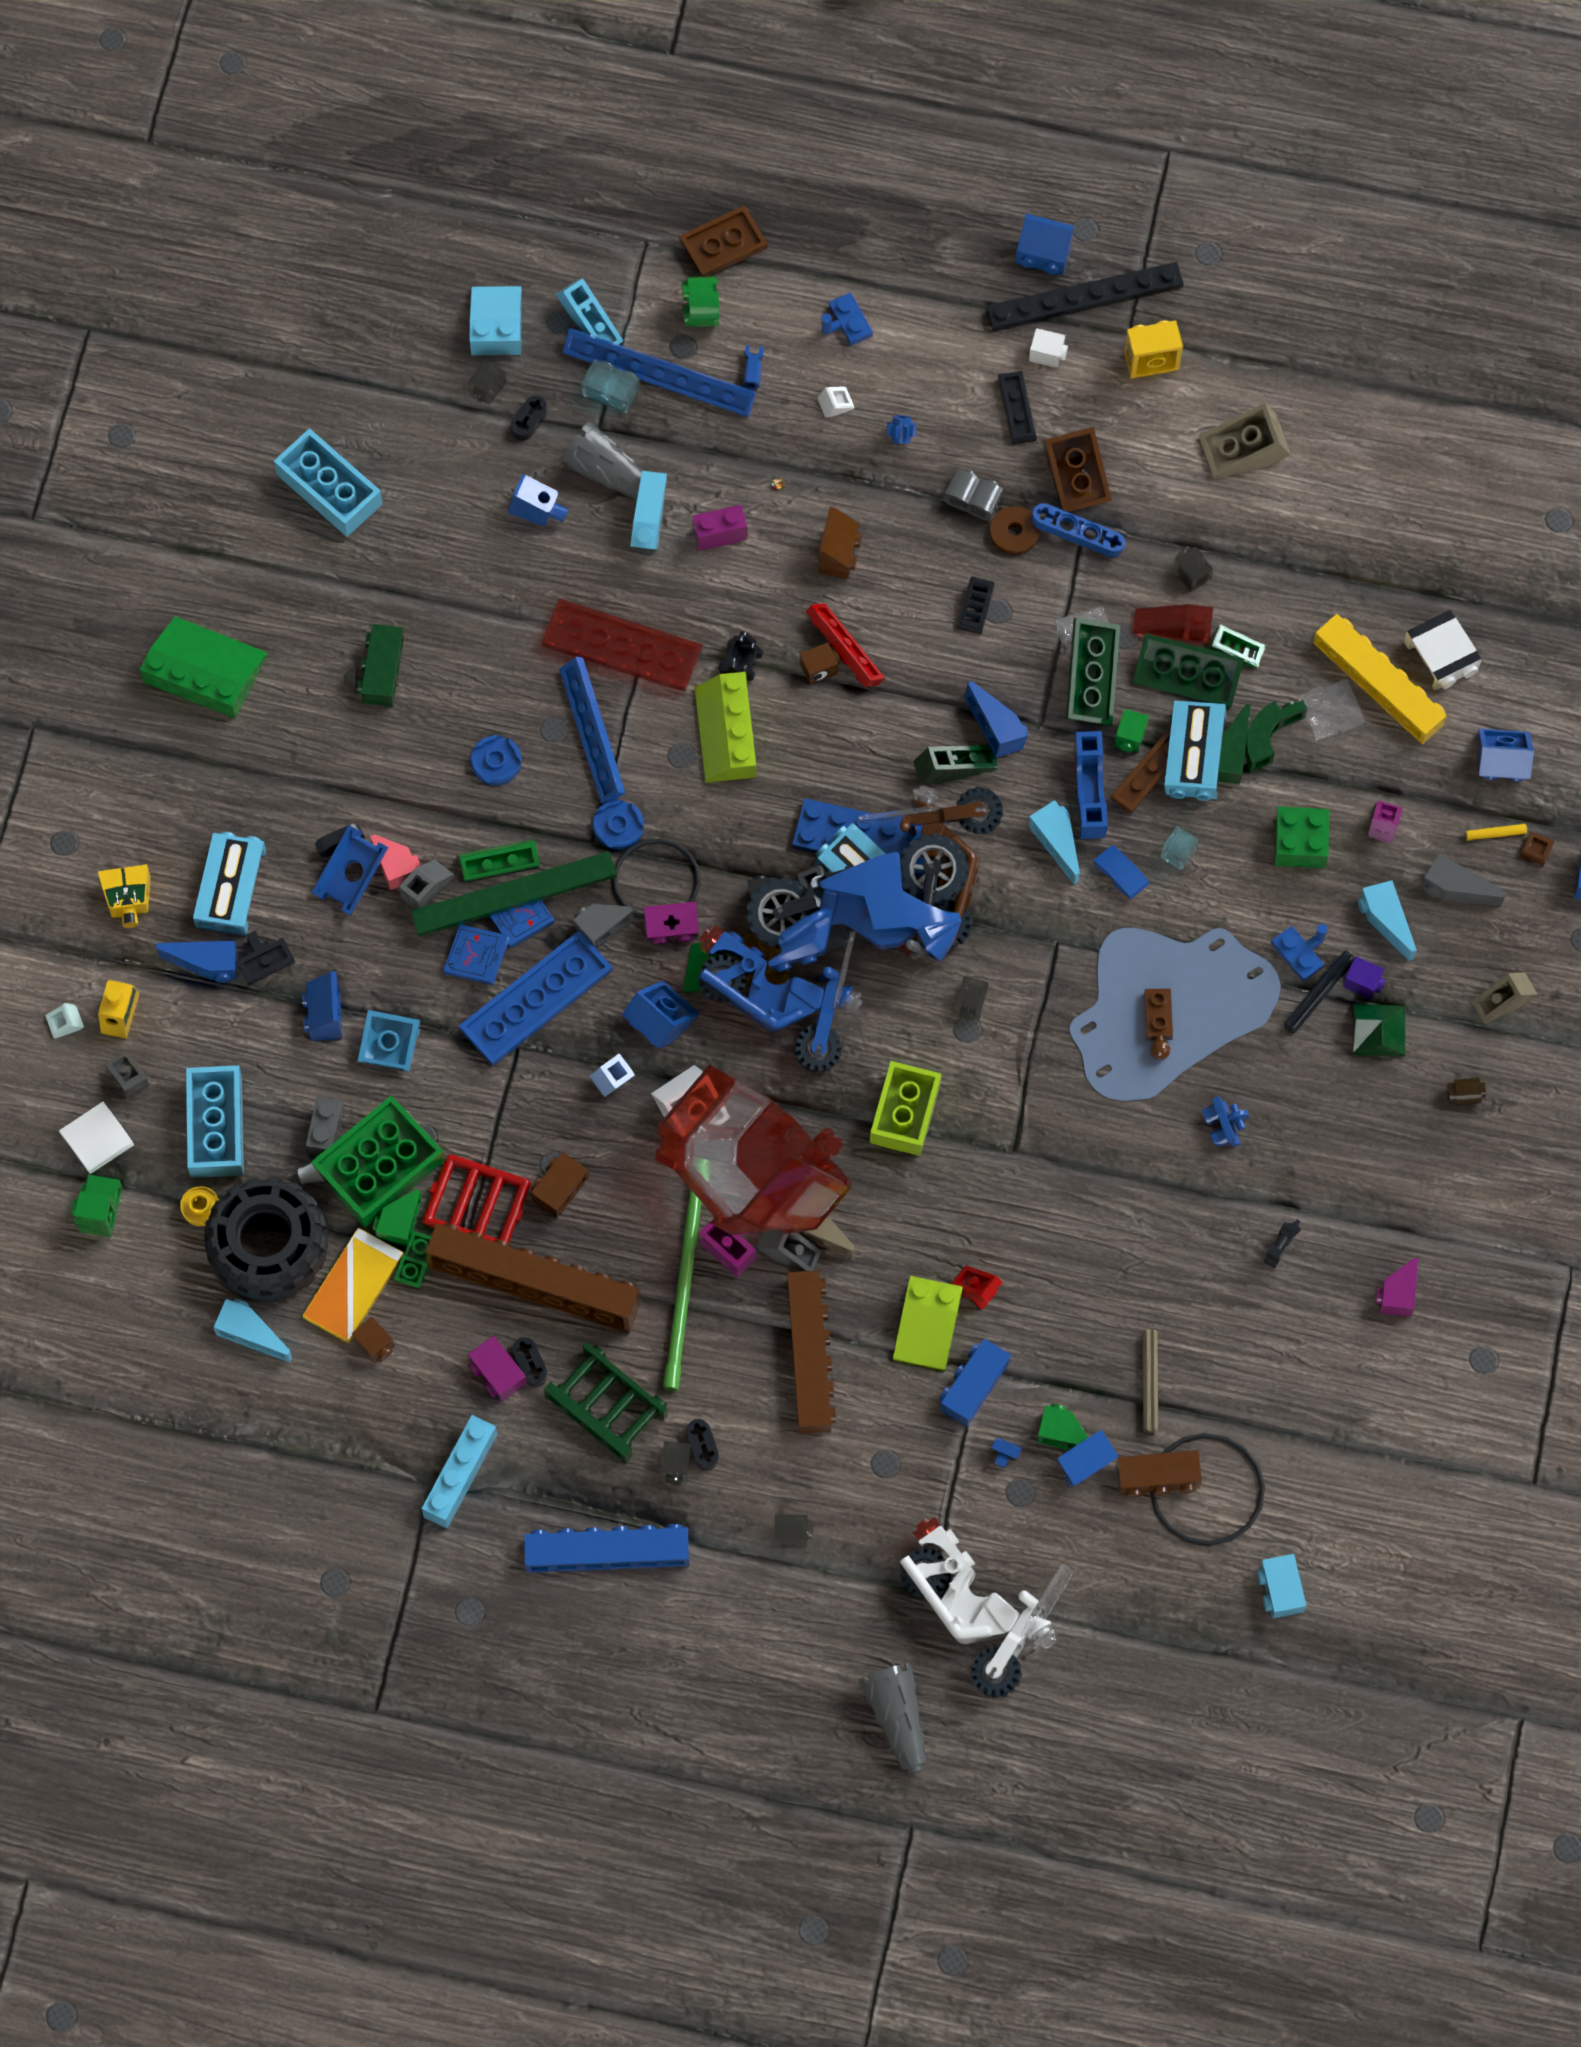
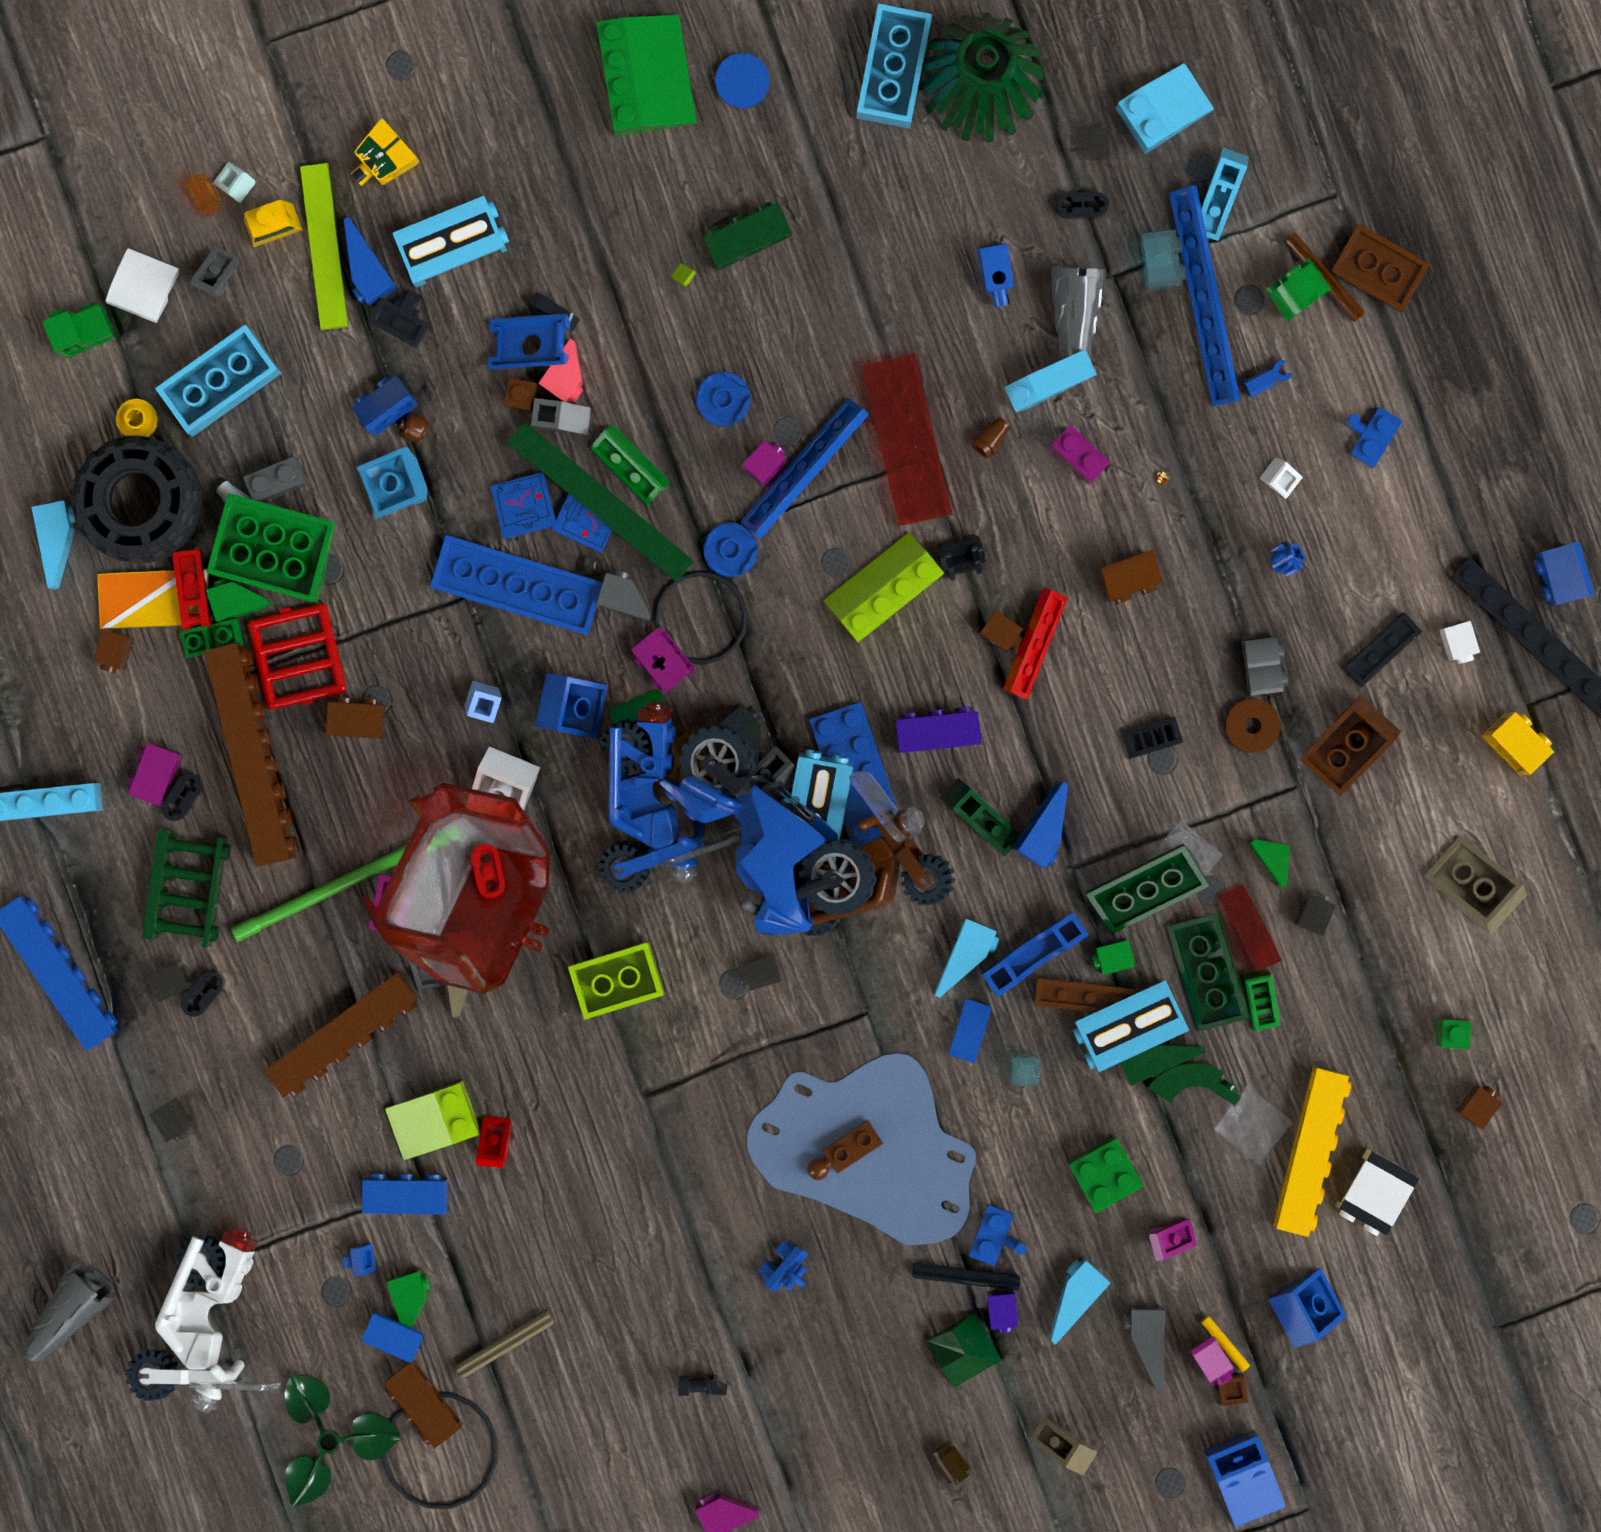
camera: 60 degrees right, 20 degrees up
(59, 1047) = (203, 195): none -> clear orange brick
(165, 983) = (324, 246): none -> lime tile
(259, 600) = (742, 81): none -> blue tile
(355, 1004) = (413, 427): none -> reddish brown piece
(366, 1244) = (191, 588): none -> red plate
(377, 405) = (982, 84): none -> dark green plant
(378, 731) = (683, 274): none -> lime piece
(388, 903) = (520, 395): none -> reddish brown brick
(568, 752) = (765, 462): none -> magenta brick
(662, 585) = (990, 438): none -> reddish brown cone
(725, 281) = (1338, 292): none -> reddish brown axle
(753, 1152) = (488, 872): none -> red plate
(866, 754) = (938, 730): none -> dark purple brick
(1079, 526) = (1292, 783): blue beam -> none
(1129, 575) = (1274, 858): none -> green slope
(1158, 1532) = (372, 1438): none -> dark green plant
(1351, 524) = (1453, 1033): none -> green brick
(1421, 539) = (1479, 1105): none -> reddish brown brick
(1503, 842) = (1213, 1362): none -> magenta slope

